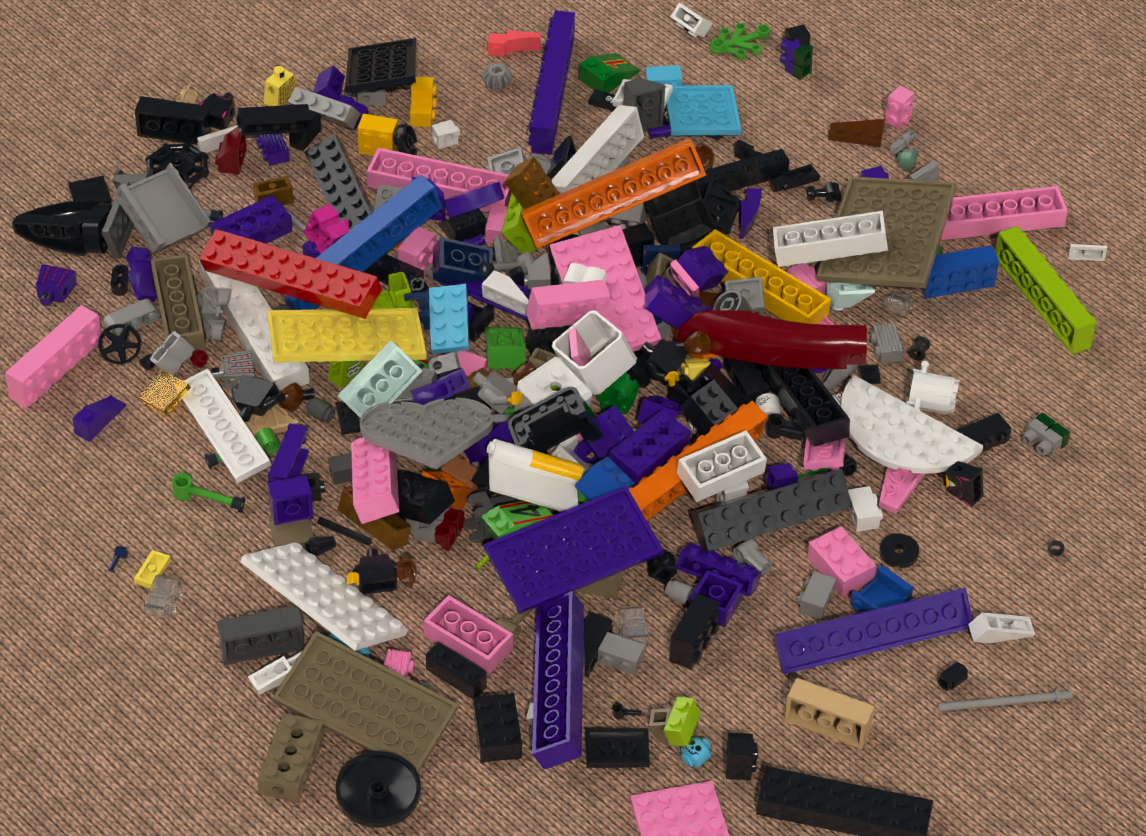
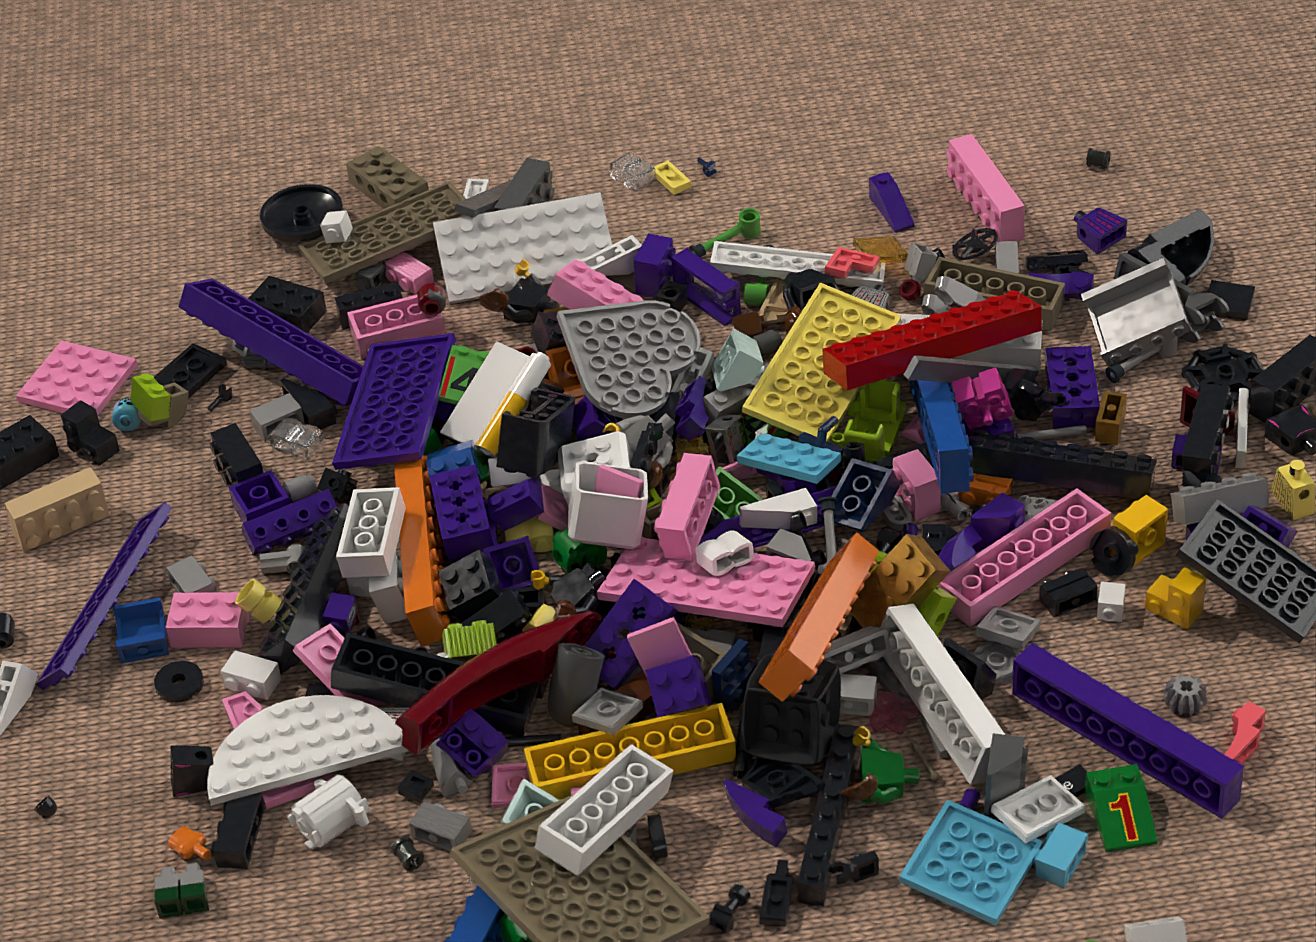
camera: 130 degrees right, 5 degrees down
(104, 292) = (1054, 259): none -> black hinge
(204, 390) = (846, 259): none -> coral plate
(281, 645) = (481, 202): none -> dark grey tile
(290, 232) = (1028, 397): none -> black brick
(300, 529) = (616, 258): none -> white slope
(313, 419) = (750, 323): none -> reddish brown brick
(323, 238) = (950, 370): none -> dark grey tile
(390, 735) = (336, 226): none -> white brick
(443, 598) = (431, 298): none -> dark red head
(452, 152) = (1068, 592): none -> black brick
(516, 370) = (647, 447): none -> black hinge
(755, 383) = (468, 641): none -> lime brick
(812, 524) = (255, 598): none -> light yellow wheel
(1012, 453) = (188, 843): none -> orange piece

